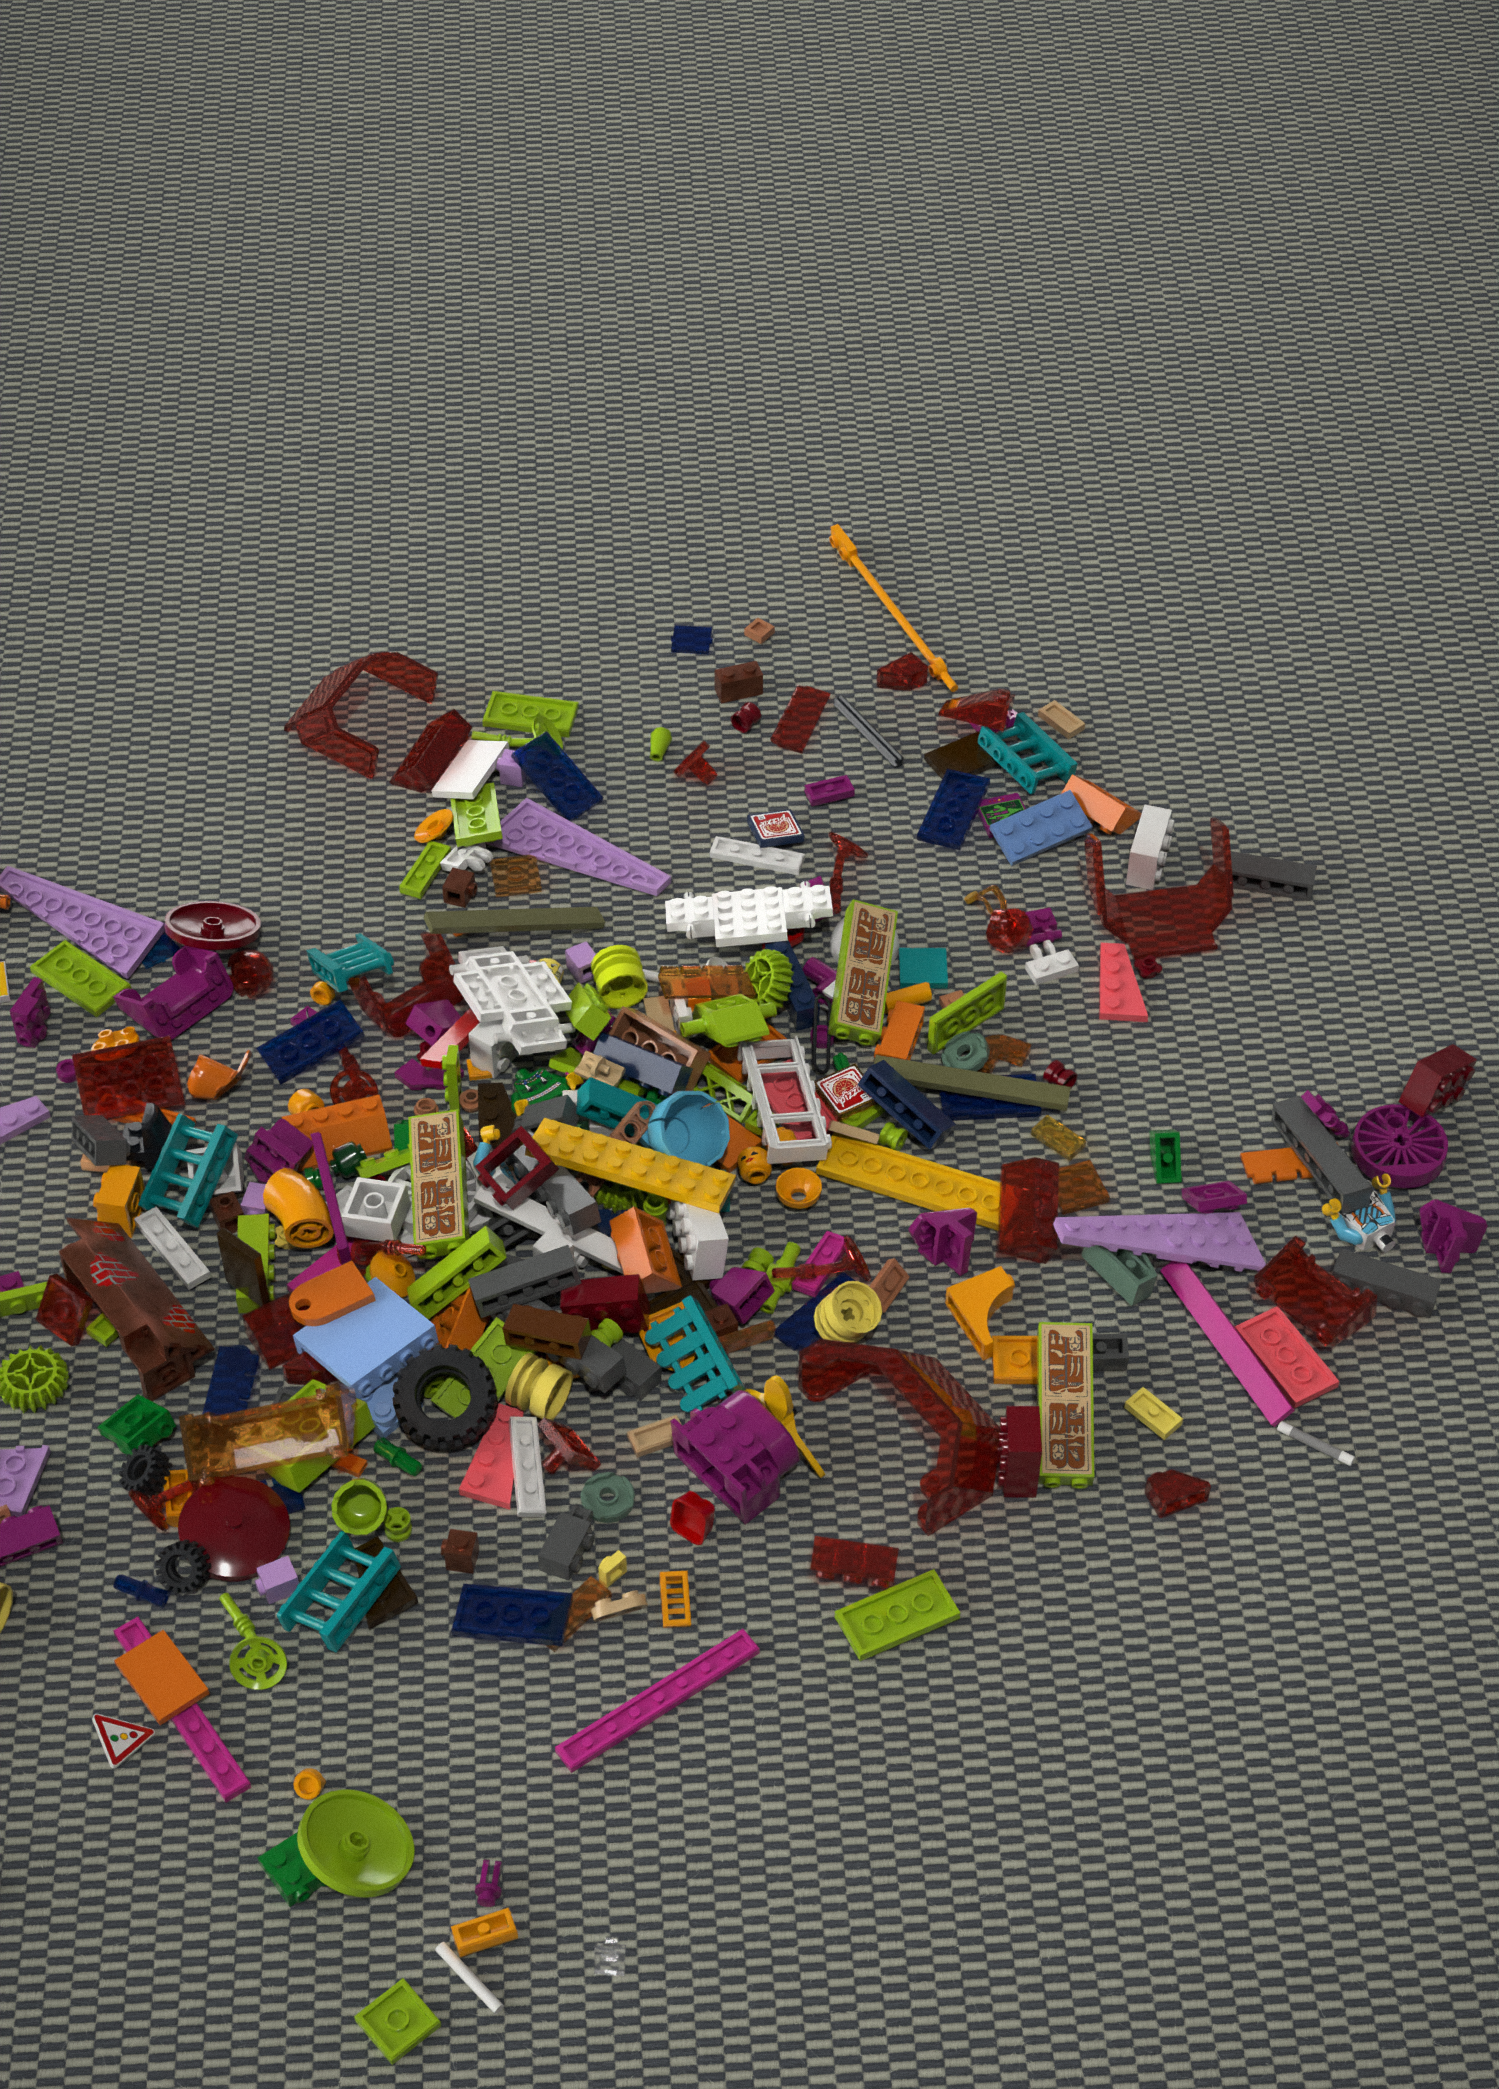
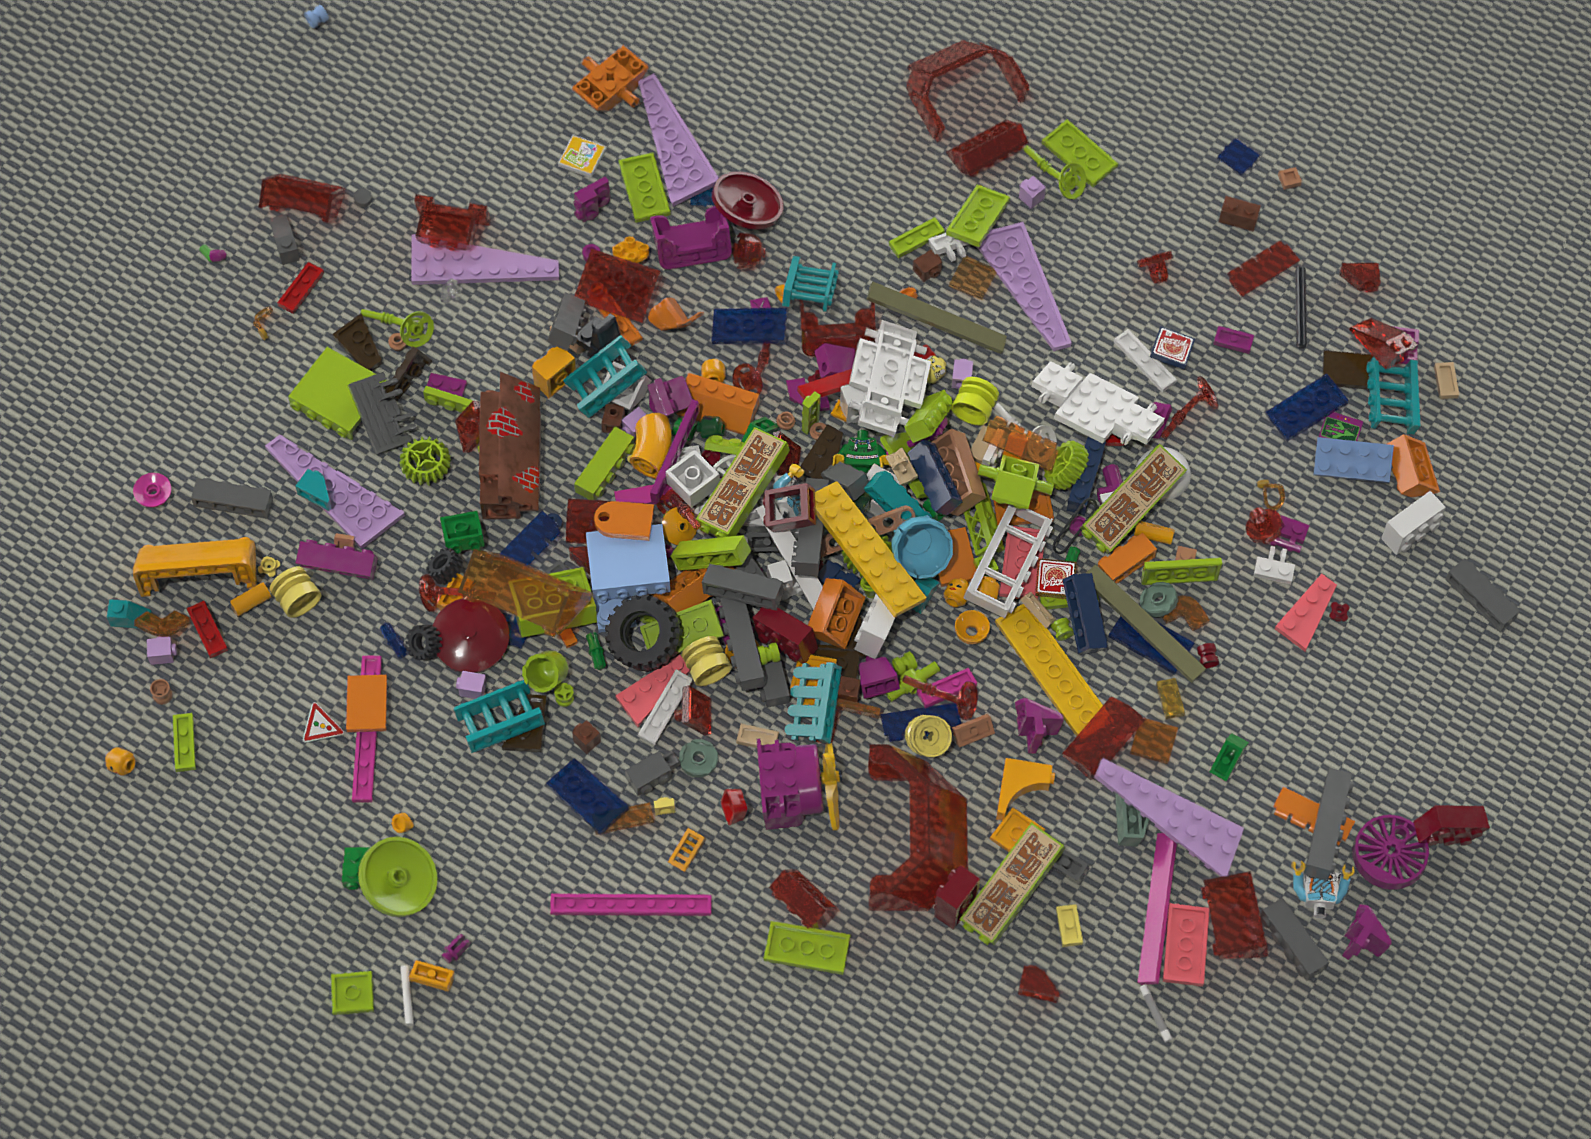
camera: 35 degrees right, 15 degrees up
(172, 1248) = (565, 422): white plate -> none
(243, 1267) = (583, 469): dark brown tile -> none
(256, 1656) = (427, 727): lime dish -> none
(434, 826) = (945, 207): light orange dish -> none
(469, 769) = (1002, 176): white tile -> none
(547, 1331) = (730, 630): reddish brown brick -> none
(557, 777) = (1053, 218): clear blue tile -> none
(607, 1609) = (658, 834): tan plate -> none
(610, 1957) = (487, 1037): clear tile -> none
(659, 743) = (1147, 230): lime cone -> none
(748, 715) = (1222, 245): dark red wheel -> none
(849, 553) = (1389, 285): light orange bar -> none
(922, 966) = (1186, 516): teal tile -> none
(1168, 918) = (1383, 583): clear red piece -> none
(1214, 1196) = (1233, 806): magenta plate -> none
(1326, 1114) = (1358, 797): magenta plate -> none

